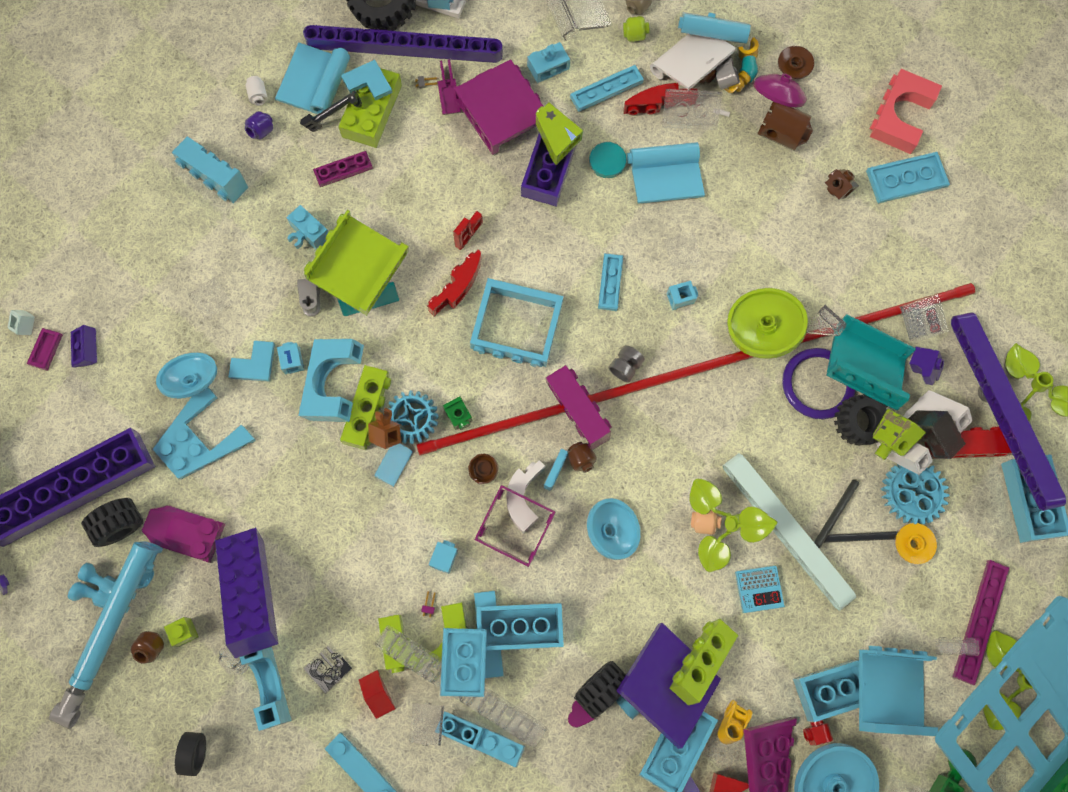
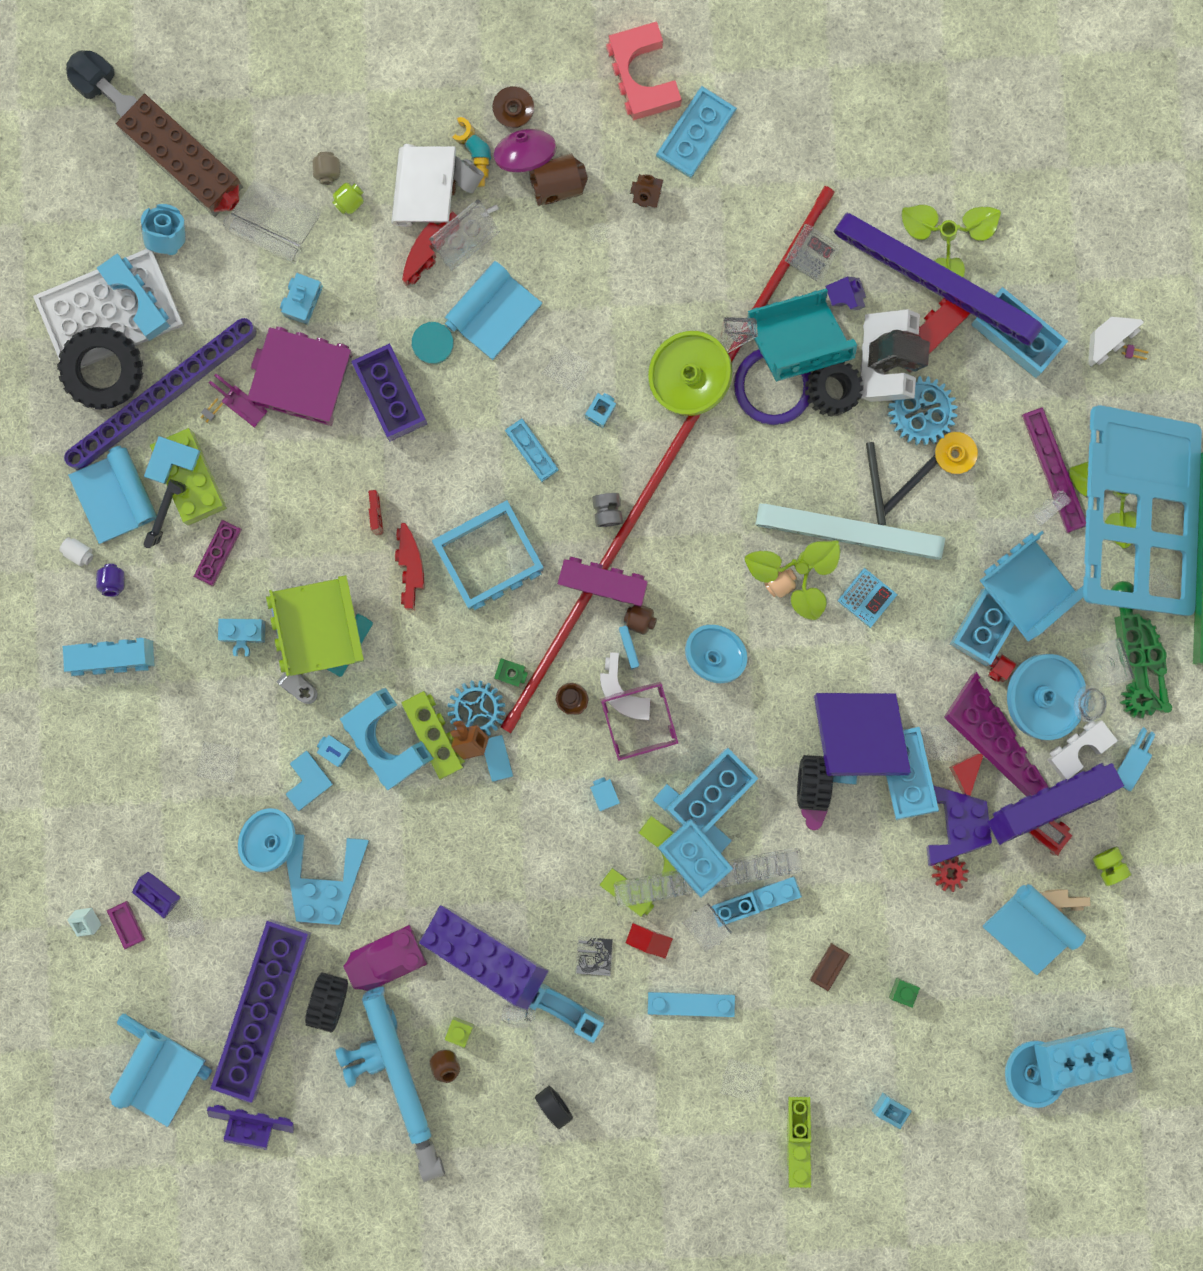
camera: 40 degrees left, 10 degrees up
(427, 609) = (628, 844): piece -> none
(557, 132) = (374, 363): lime slope -> none
(606, 88) = (373, 277): medium azure plate -> none
(691, 689) = (872, 662): lime brick -> none
(714, 27) = (416, 138): medium azure door -> none
(736, 719) = (933, 714): yellow piece -> none
(896, 434) = (870, 382): lime torso -> none

